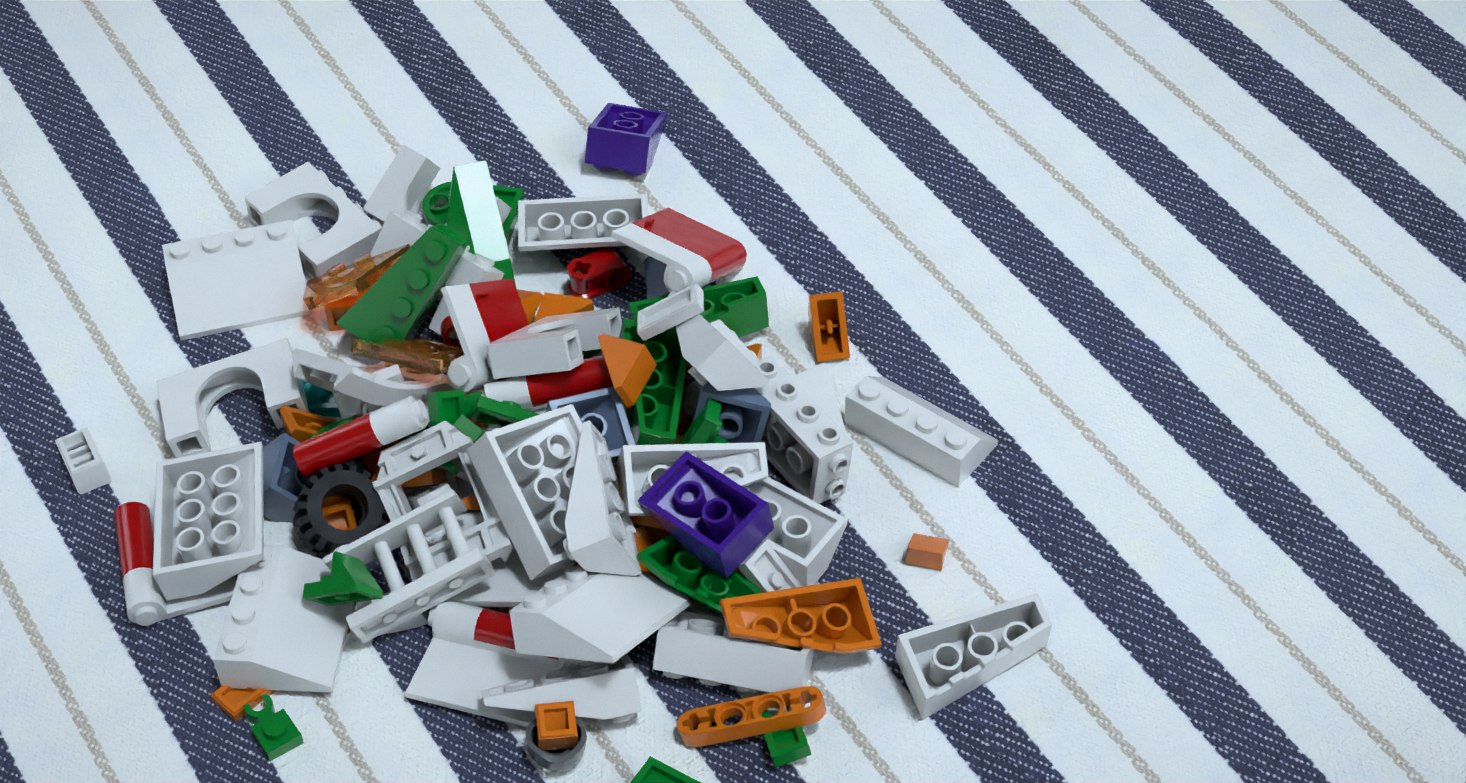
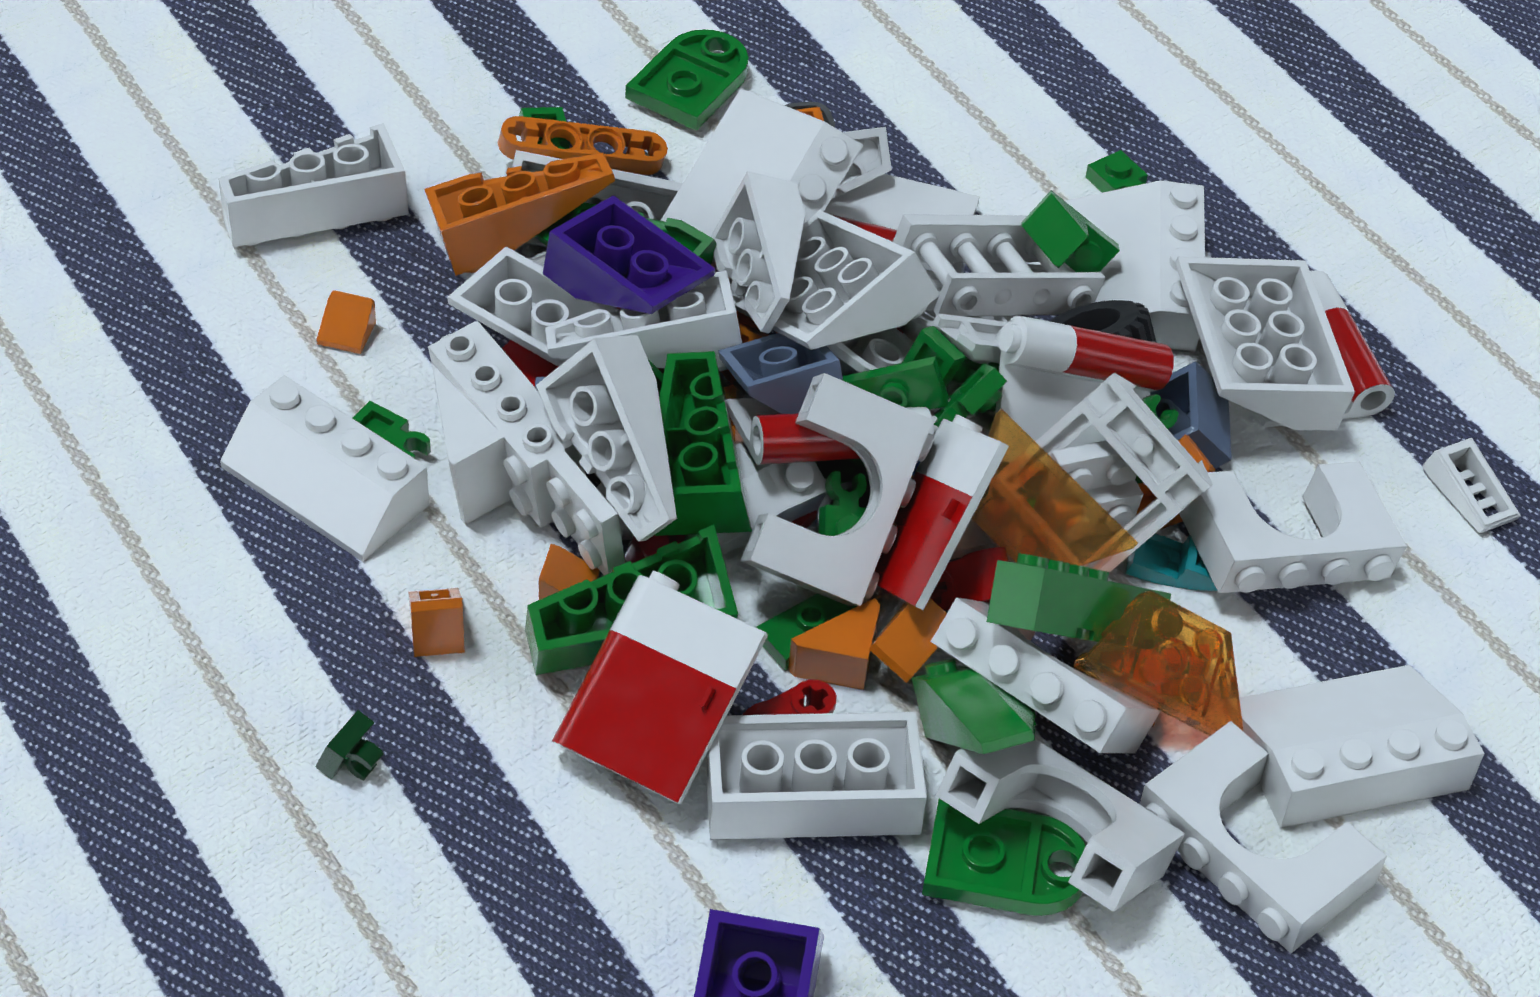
camera: 175 degrees right, 0 degrees up
(628, 366) = (738, 403): orange slope -> none
(670, 311) = (673, 456): white tile -> none
(872, 249) = (351, 749): none -> dark green tile
(883, 457) = (393, 429): none -> green plate

